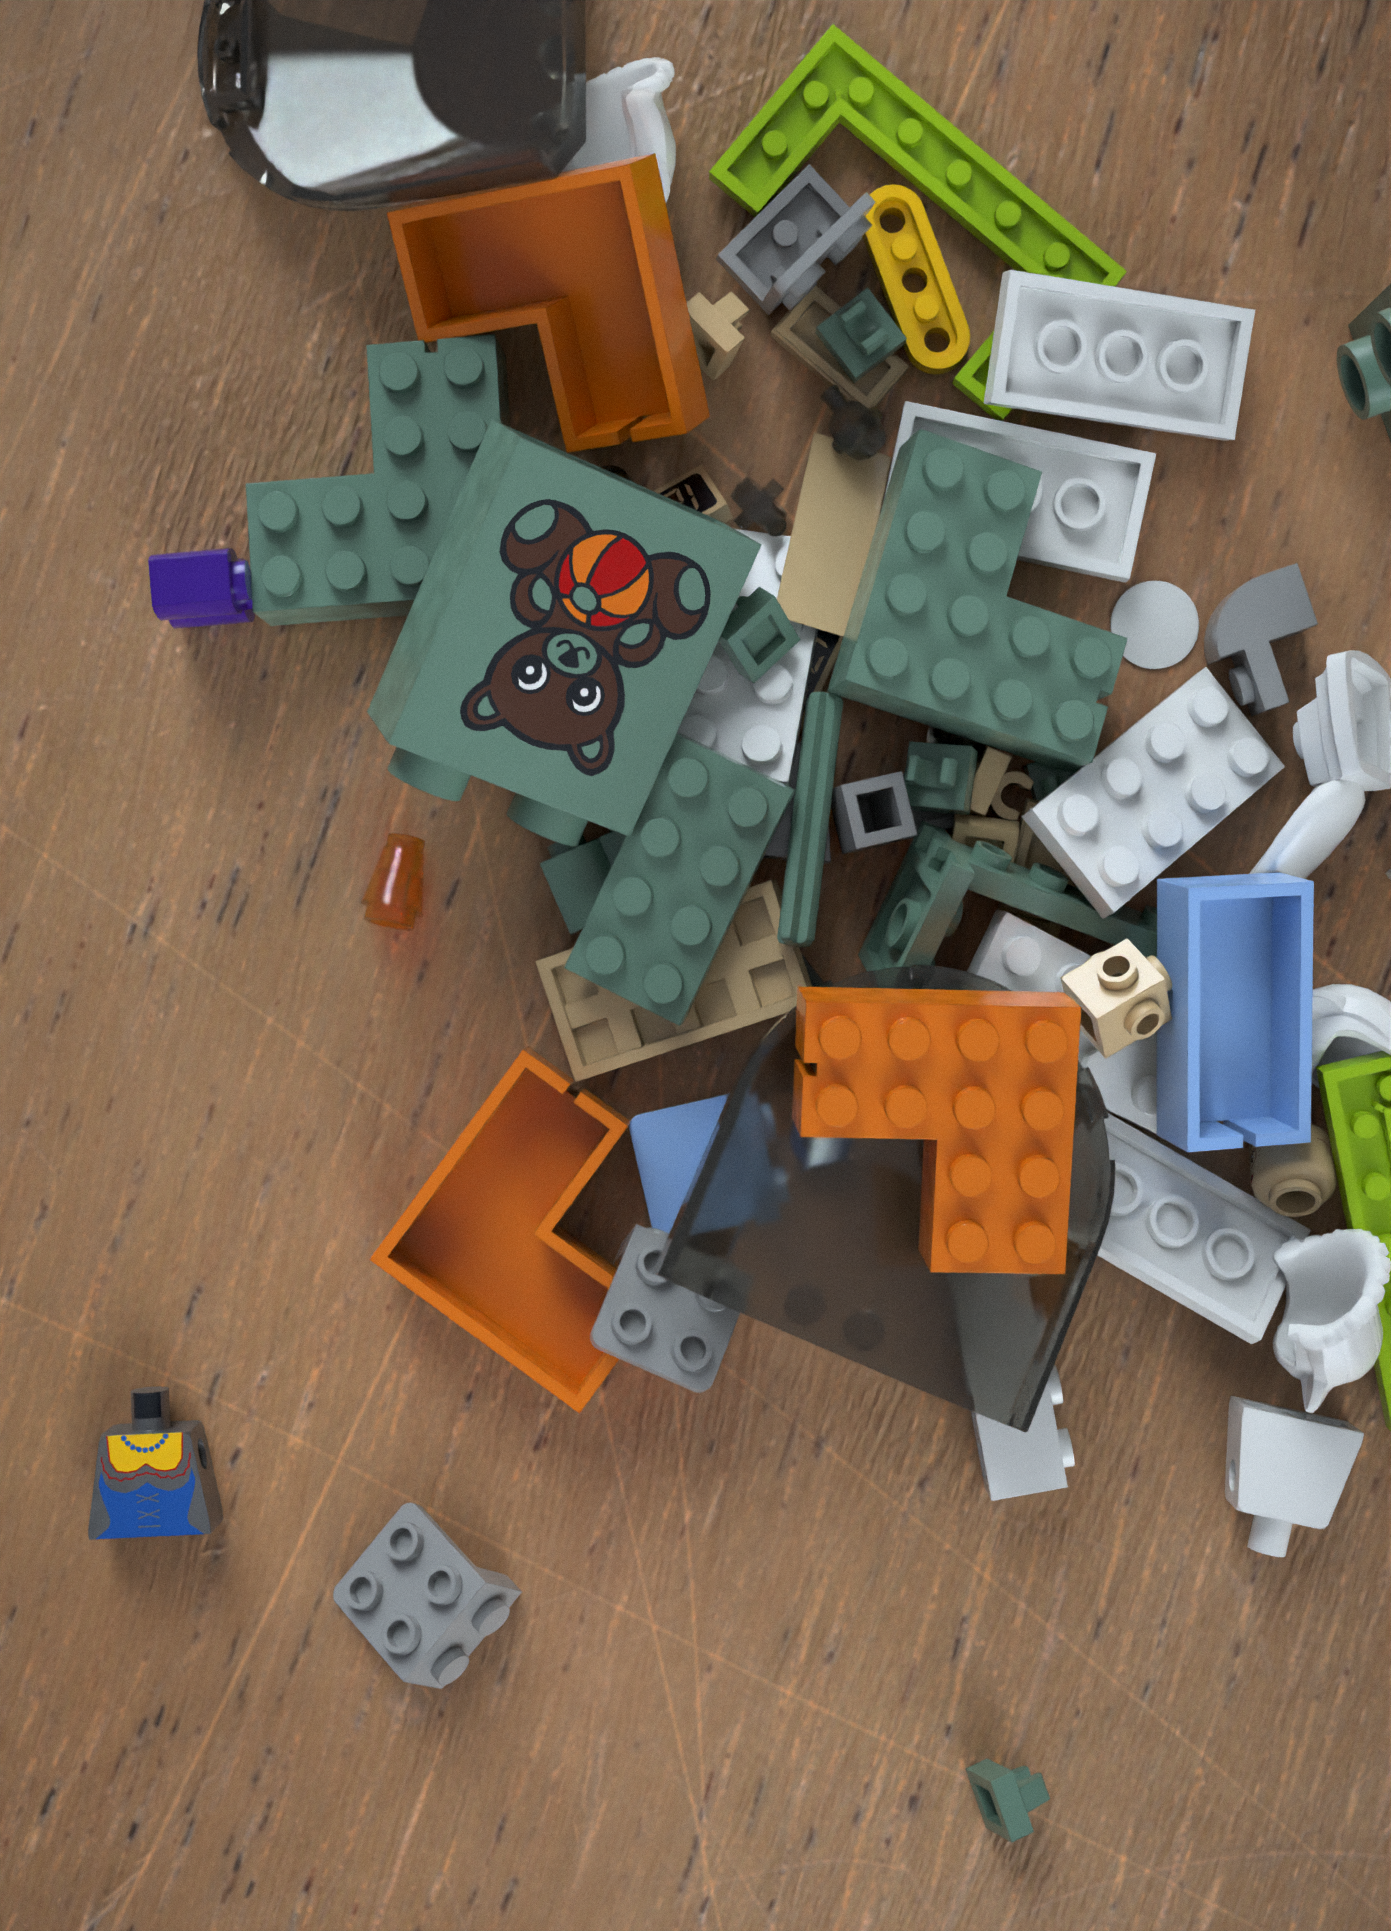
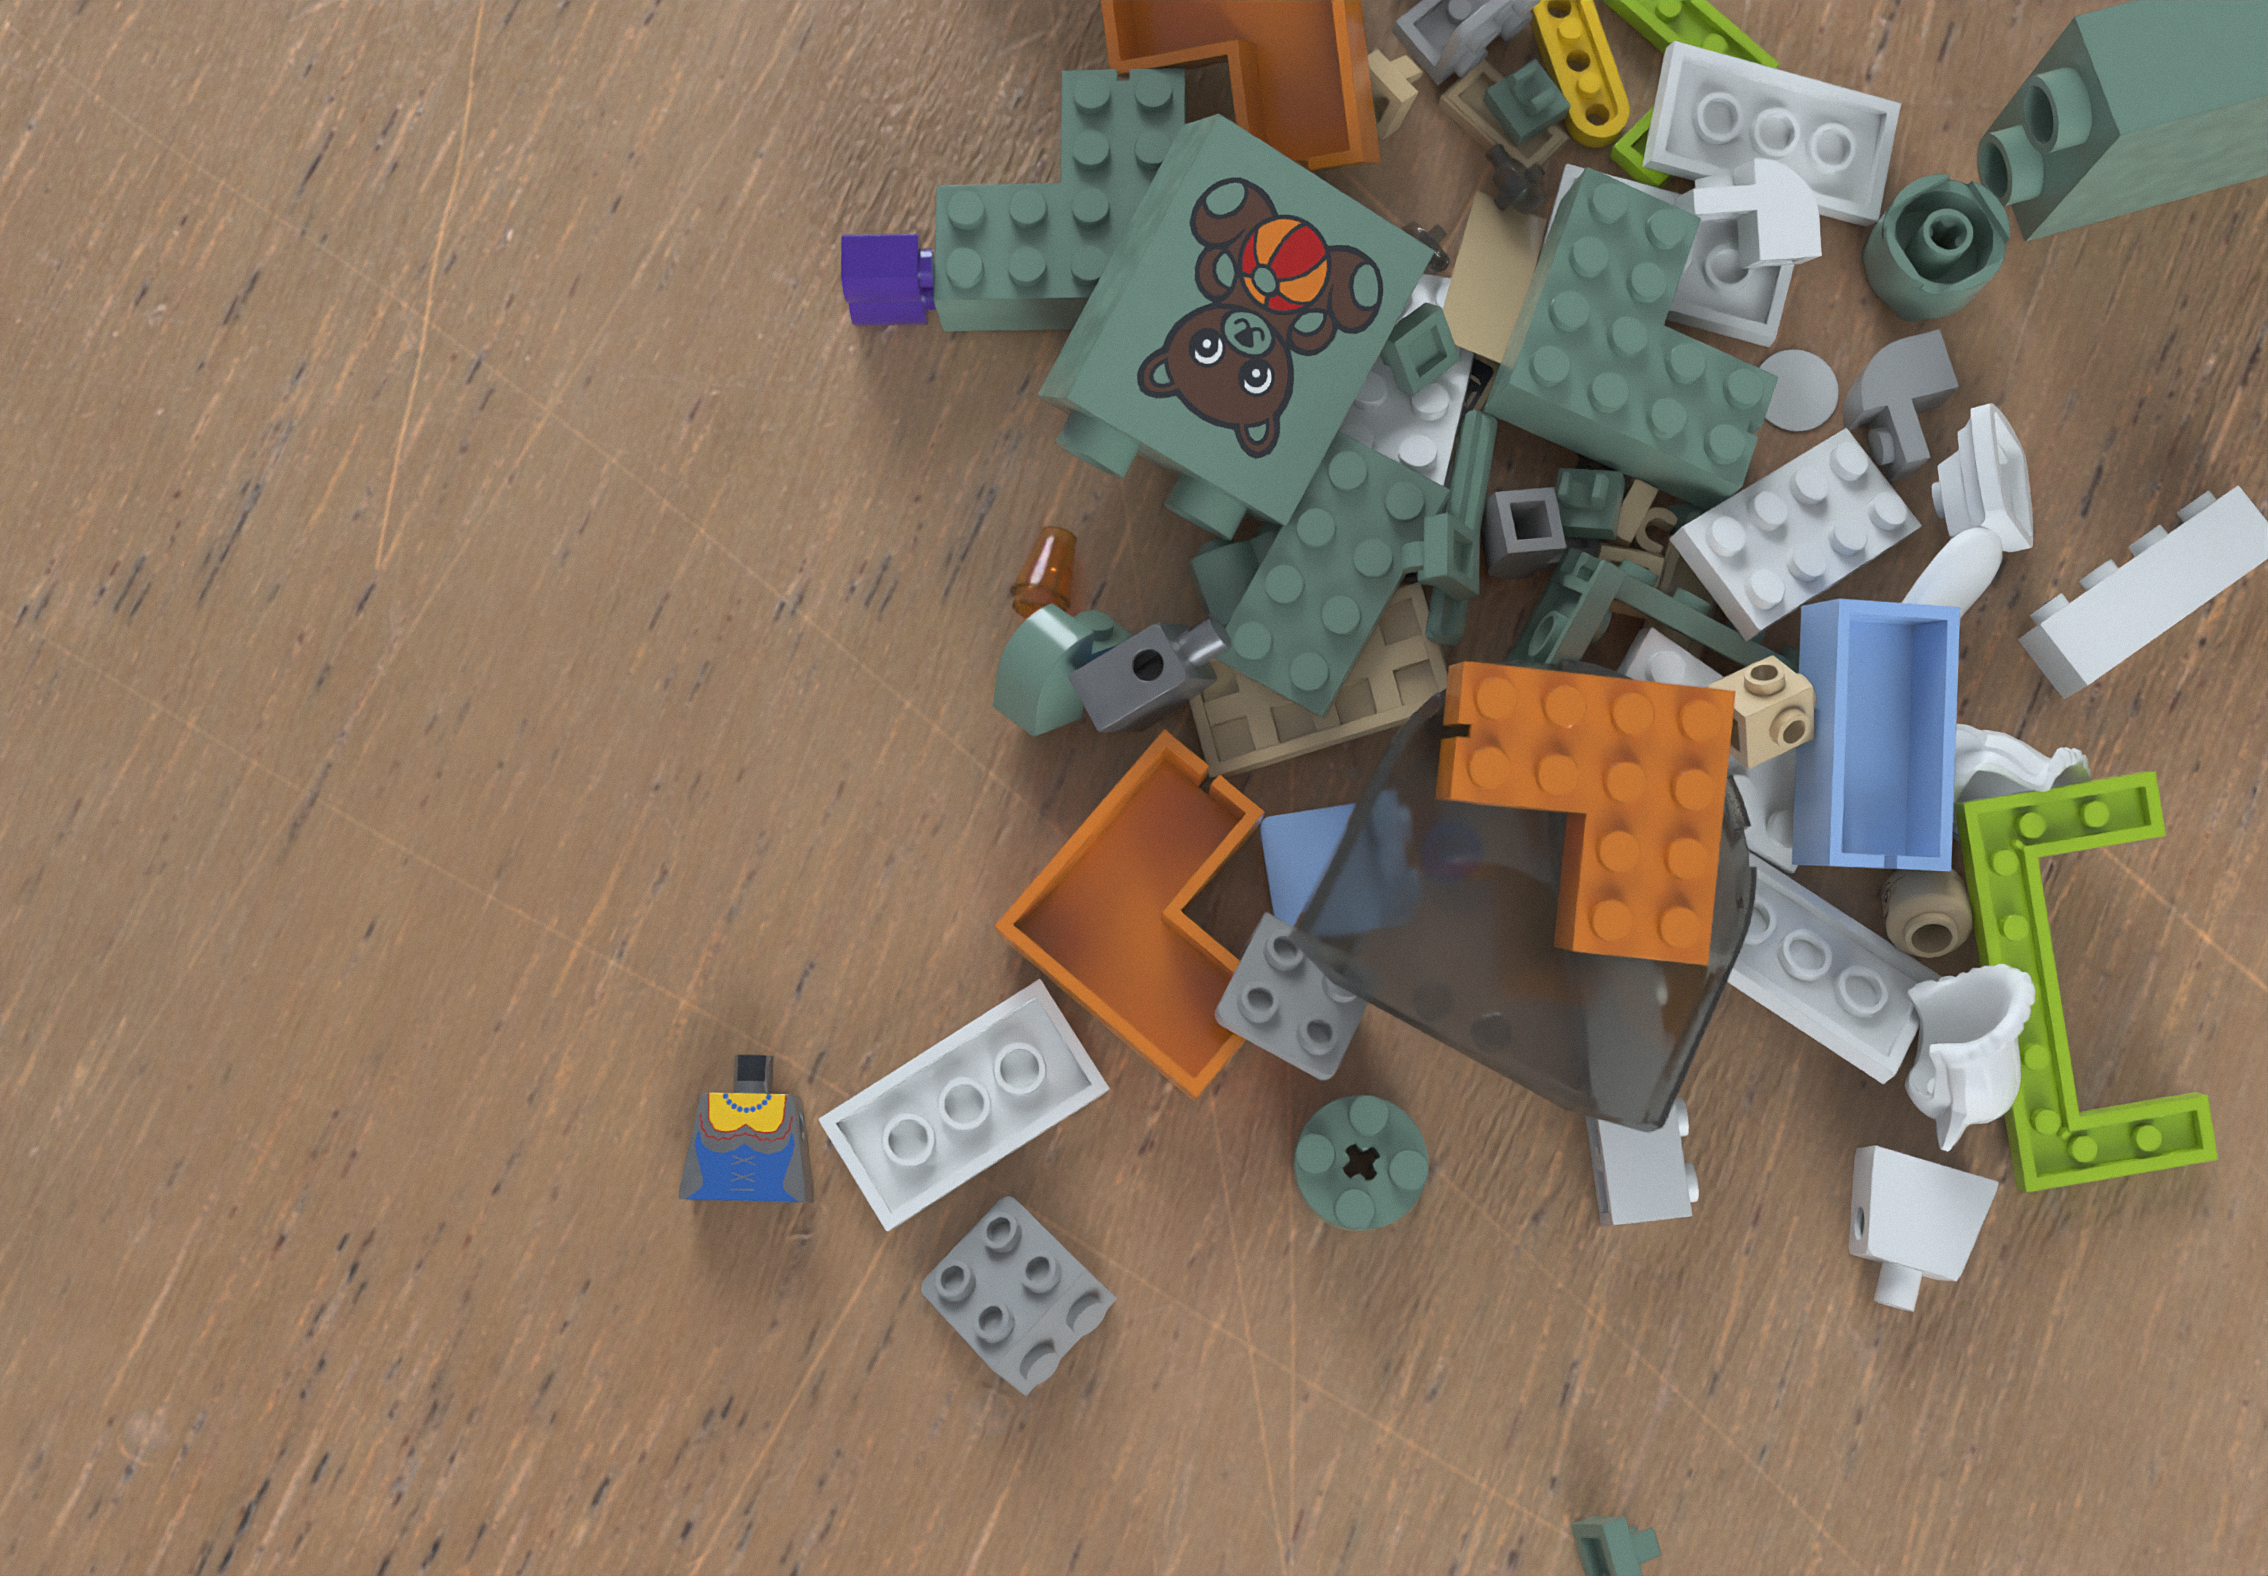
camera: 10 degrees right, 10 degrees down
(358, 1421) = (963, 1105): none -> white plate
(405, 981) = (1036, 663): none -> sand green brick
(503, 993) = (1150, 674): none -> flat silver torso
(742, 1491) = (1397, 1171): none -> sand green brick
(791, 867) = (1445, 557): none -> sand green tile
(1119, 449) = (1772, 210): none -> white brick
(1289, 431) = (1936, 247): none -> sand green brick

